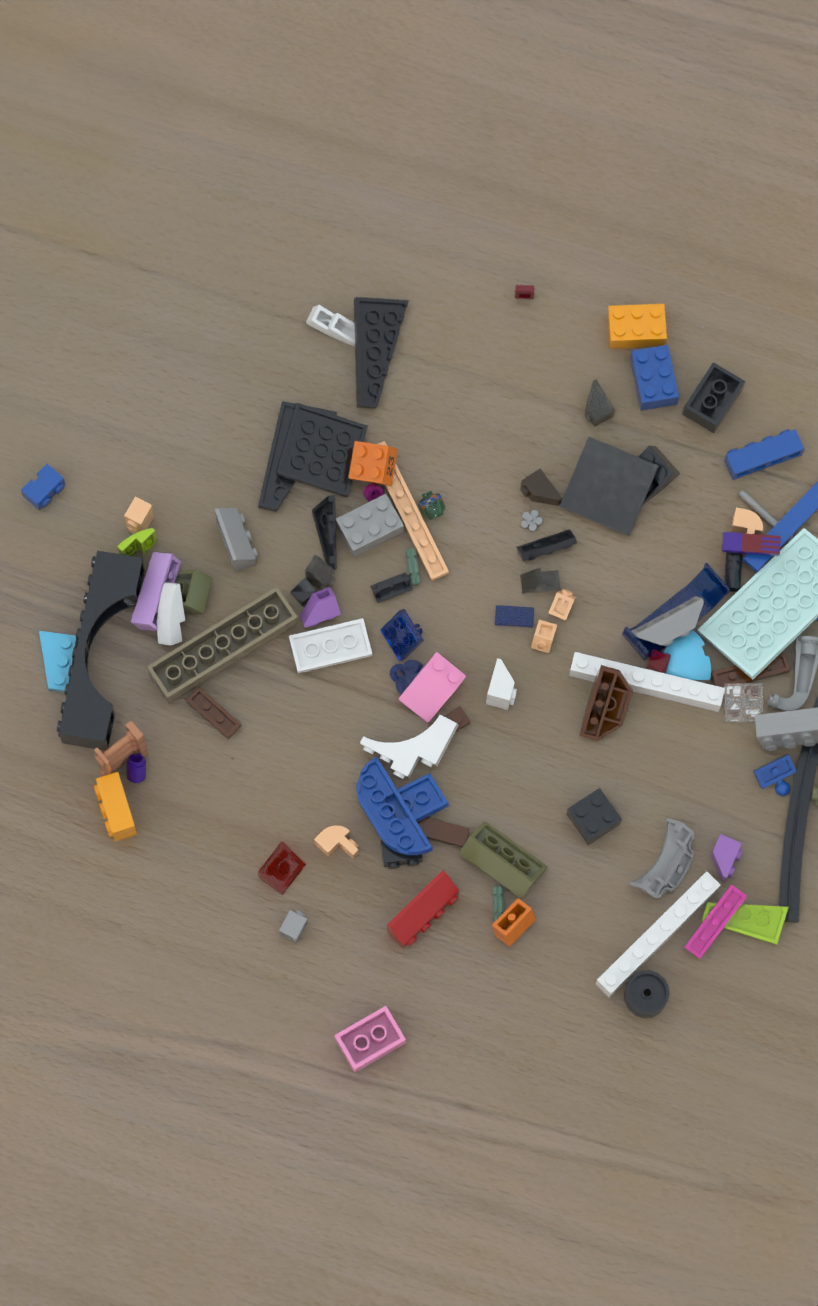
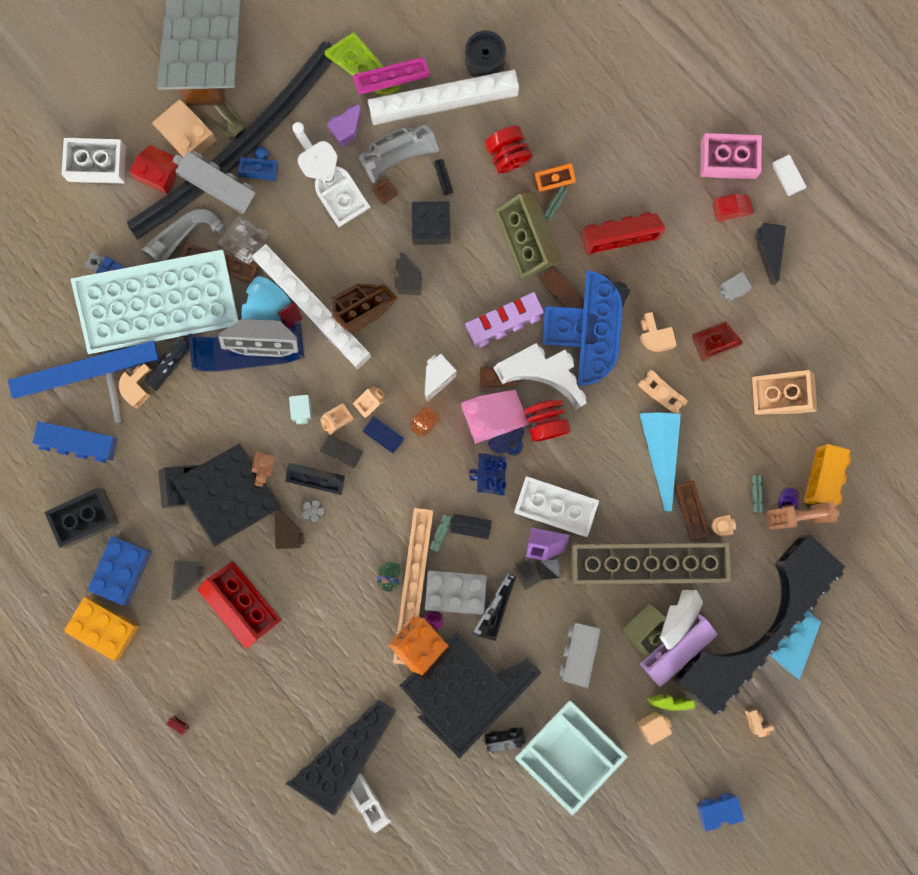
camera: 145 degrees left, 10 degrees up
(56, 574) = (755, 719): none -> light nougat bracket
(165, 762) = (757, 493): none -> sand green axle
(179, 715) = (722, 526): none -> light nougat plate
(192, 454) = (571, 757): none -> light aqua slope
(192, 860) = (785, 393): none -> light nougat slope
(260, 433) = (496, 740): none -> black hinge
(274, 754) = (662, 440): none -> medium azure wedge
(284, 982) = (770, 246): none -> black slope
(299, 797) = (662, 392): none -> light nougat plate
(306, 1061) = (789, 175): none -> white tile
(338, 998) = (732, 207): none -> red slope
(387, 710) = (547, 420): none -> red wheel
(476, 773) = (504, 319): none -> lavender brick
(486, 644) = (424, 422): none -> clear orange brick
(539, 410) = (239, 604): none -> red slope
(569, 919) = (508, 149): none -> red wheel
(581, 759) = (409, 277): none -> clear smoke slope
(596, 527) = (263, 467): none -> nougat plate
(597, 593) = (300, 409): none -> light aqua brick
(610, 866) = (443, 177): none -> black axle
(653, 822) = (385, 191): none -> reddish brown tile
(686, 792) = (340, 196): none -> white plate
(751, 543) = (142, 365): tile -> none

